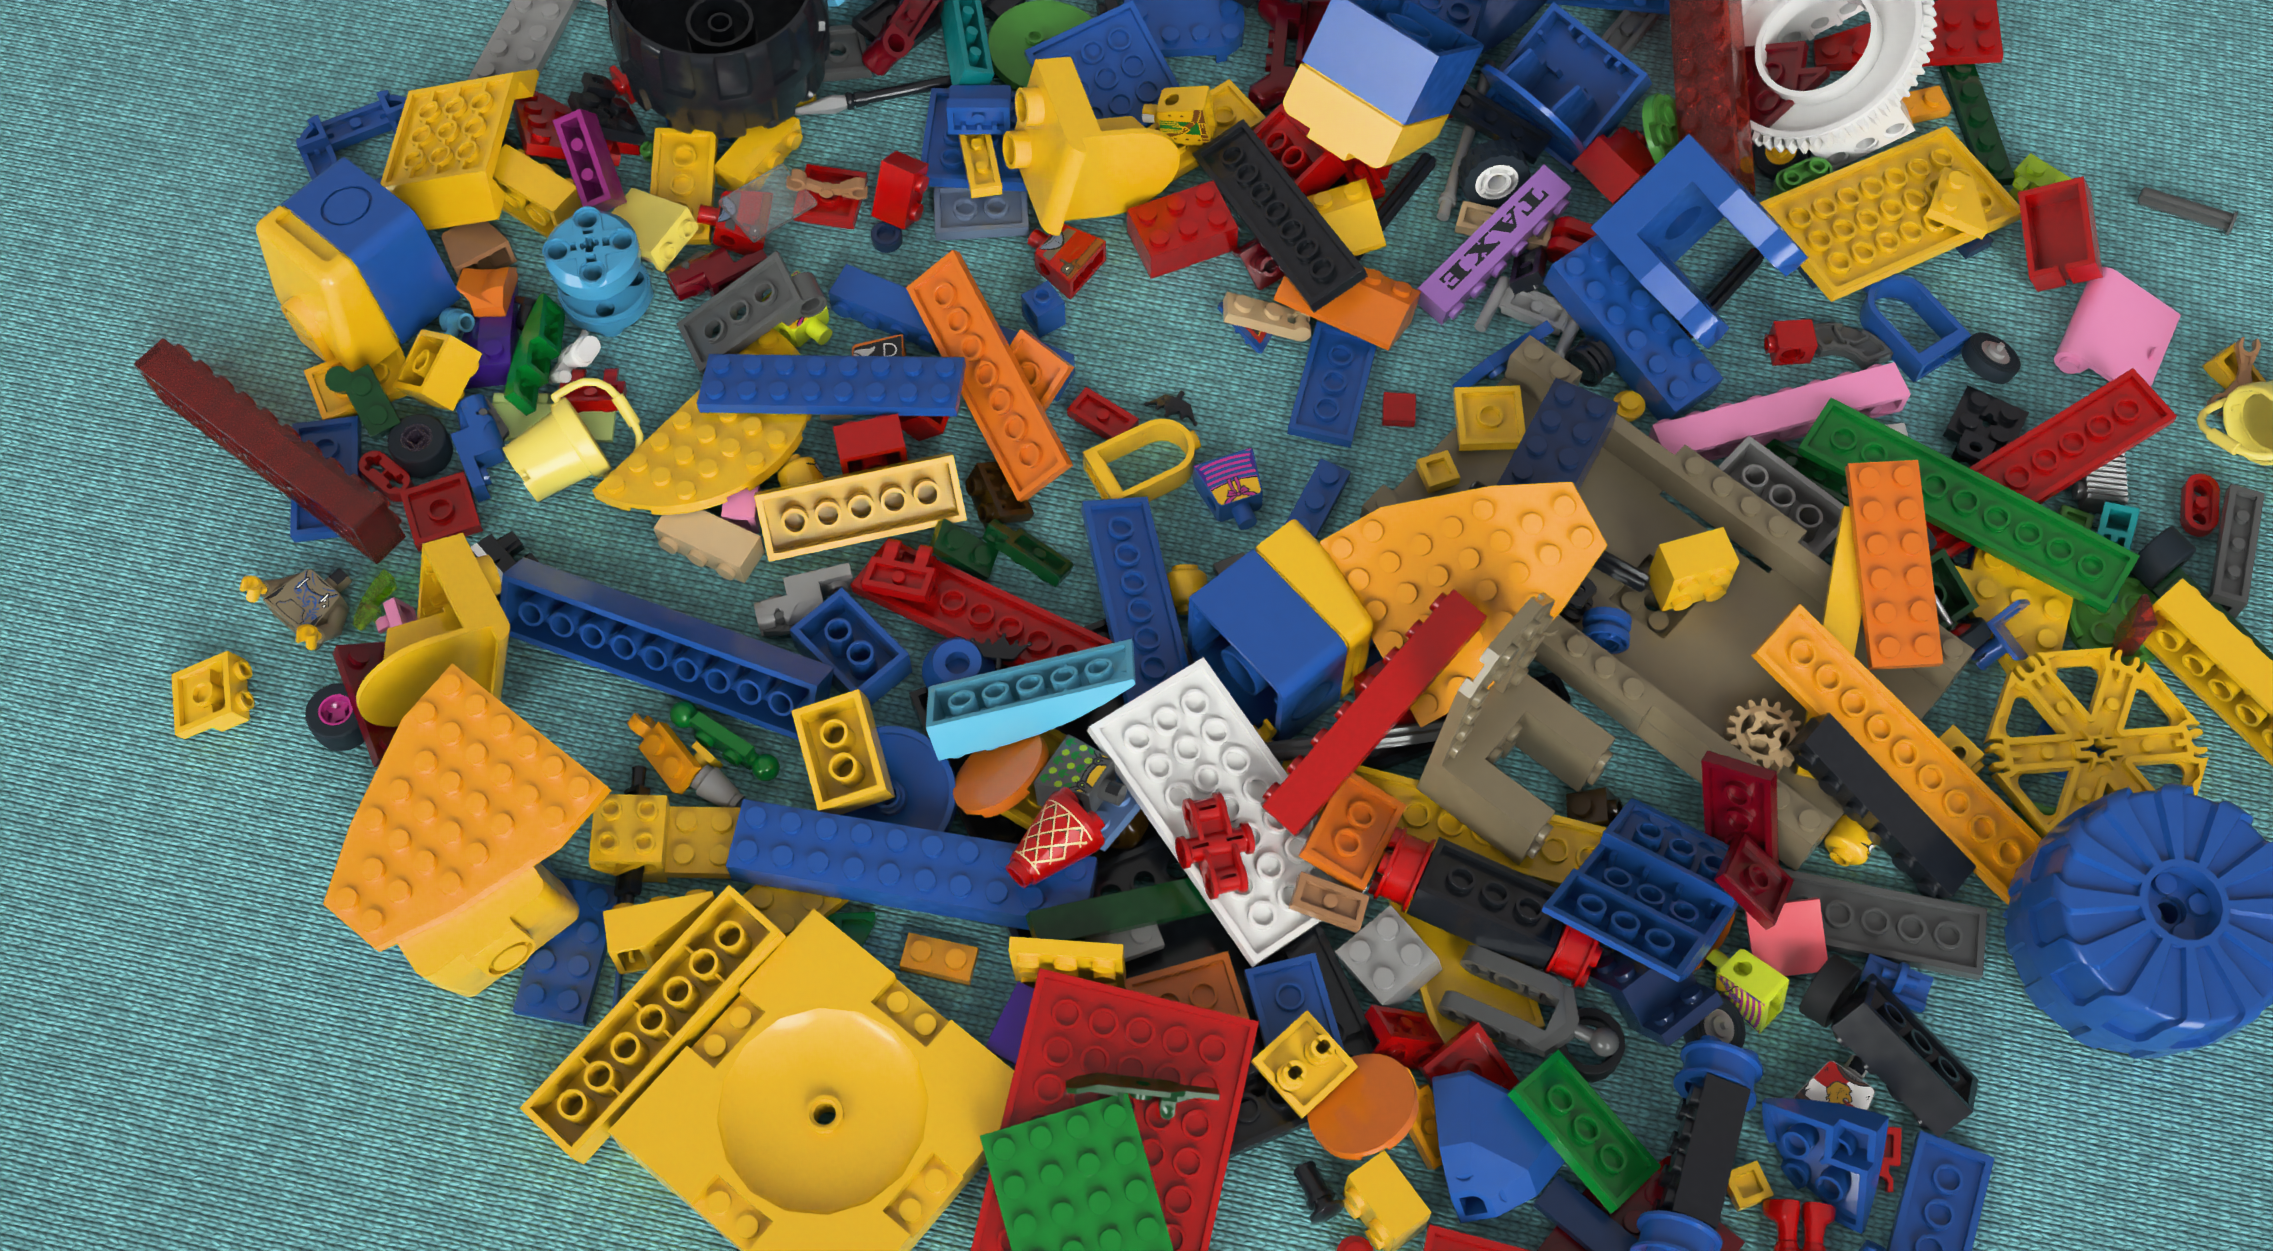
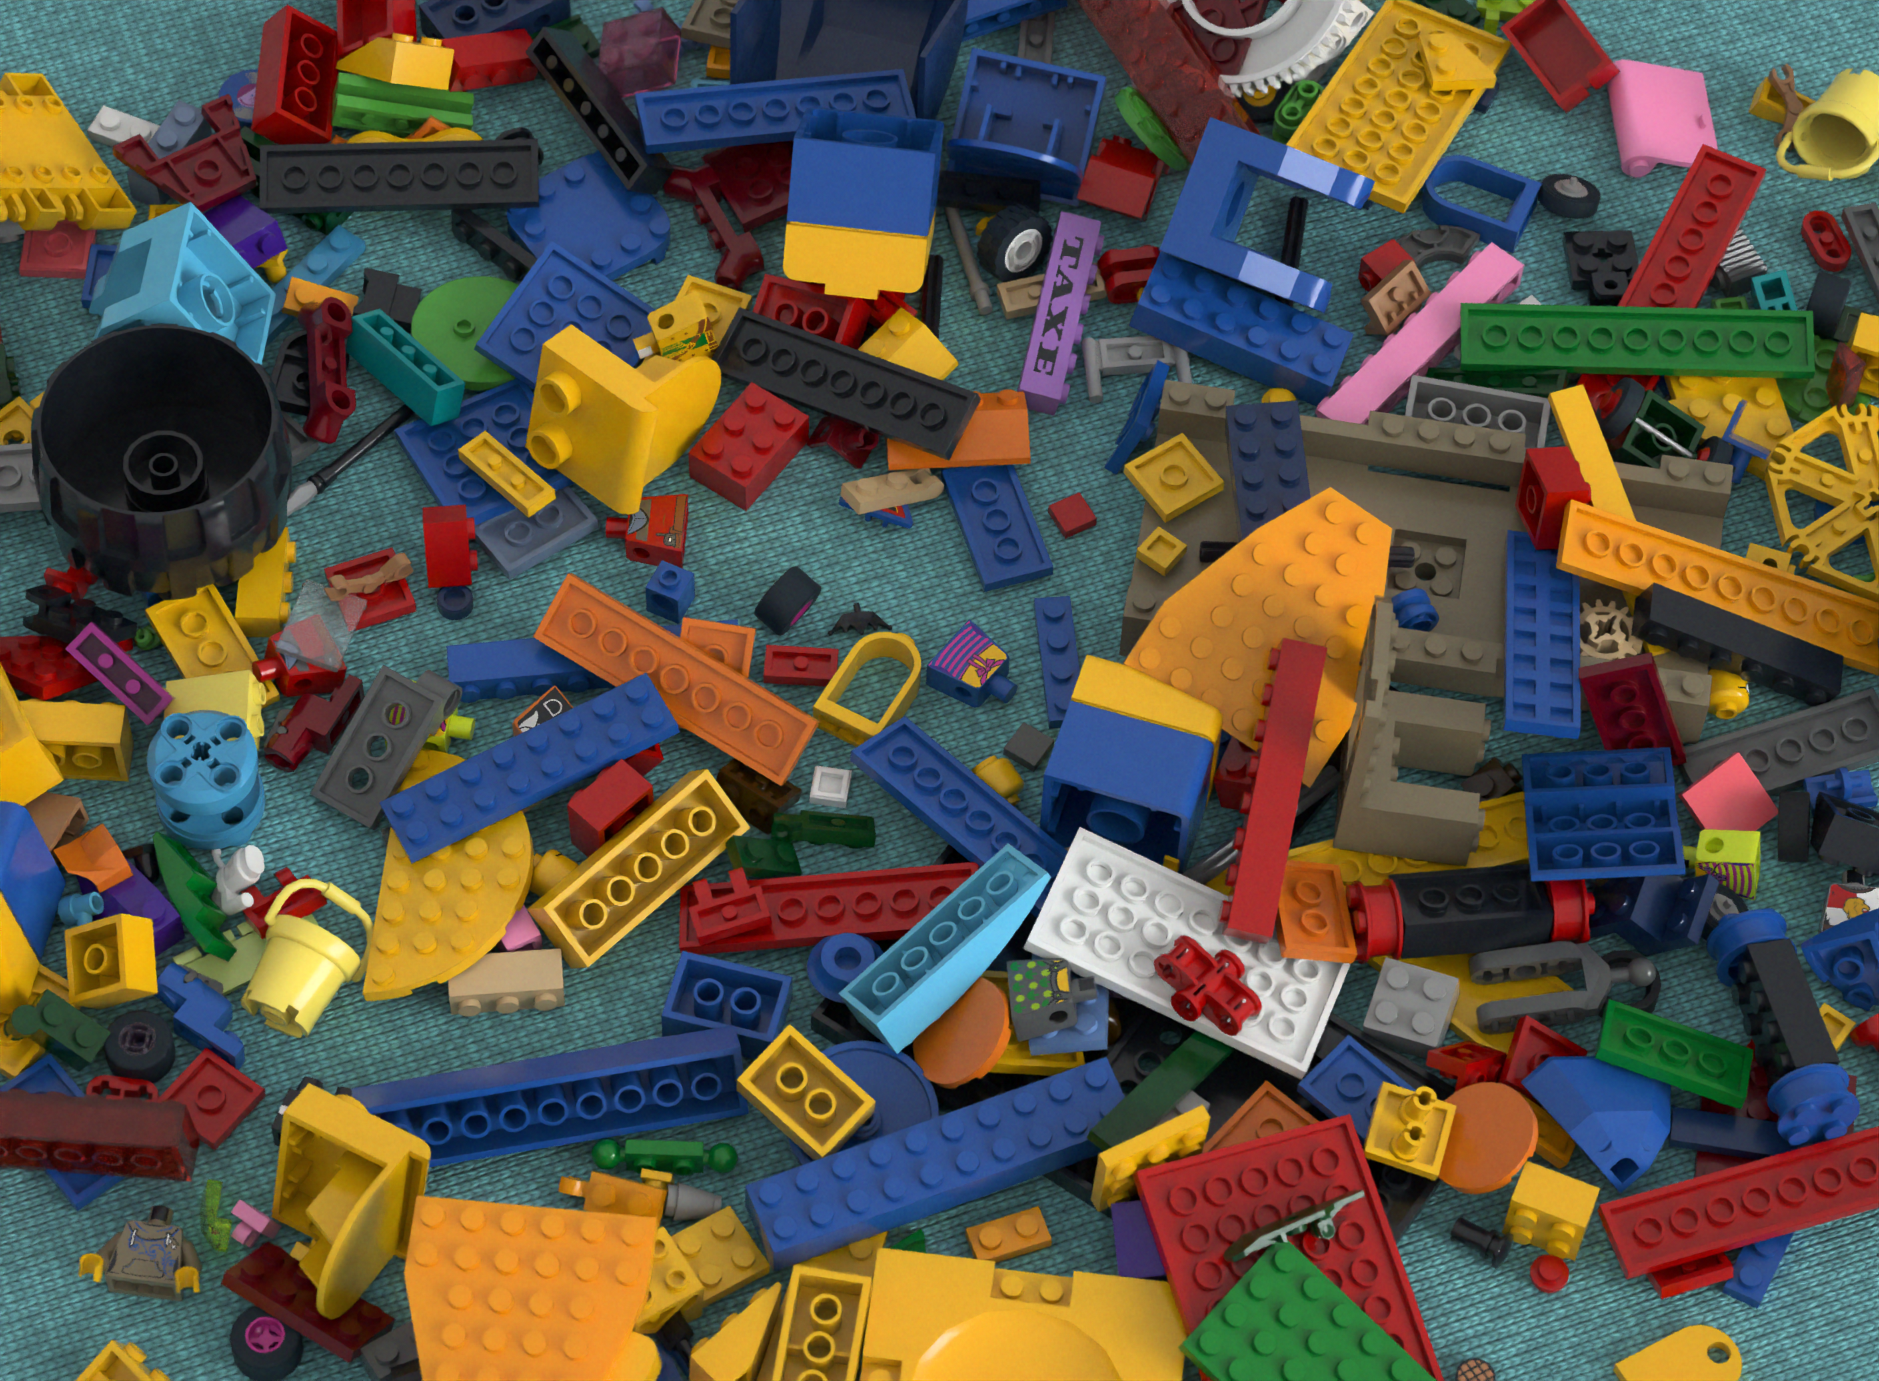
camera: 35 degrees left, 5 degrees down
(802, 596) = (640, 989): light grey plate -> none
(979, 109) = (478, 424): blue bracket -> none
(1000, 650) = (879, 926): black piece -> none
(1056, 839) = (1070, 1051): red cone -> none
(1060, 522) = (830, 786): none -> white tile
(1125, 360) = (787, 600): none -> black wheel
(1329, 902) = (1333, 983): medium nougat plate -> none
(1528, 270) = (1108, 321): black plate -> none
(1592, 359) = (1222, 373): black wheel -> none
(1692, 569) = (1451, 521): yellow brick -> none
(1695, 711) = (1540, 642): none -> blue plate
(1754, 880) = (1678, 763): dark red tile -> none
(1780, 368) = (1395, 298): none -> medium nougat bracket
(1798, 579) = (1546, 486): none -> red brick
(1893, 565) = (1623, 424): orange plate -> none

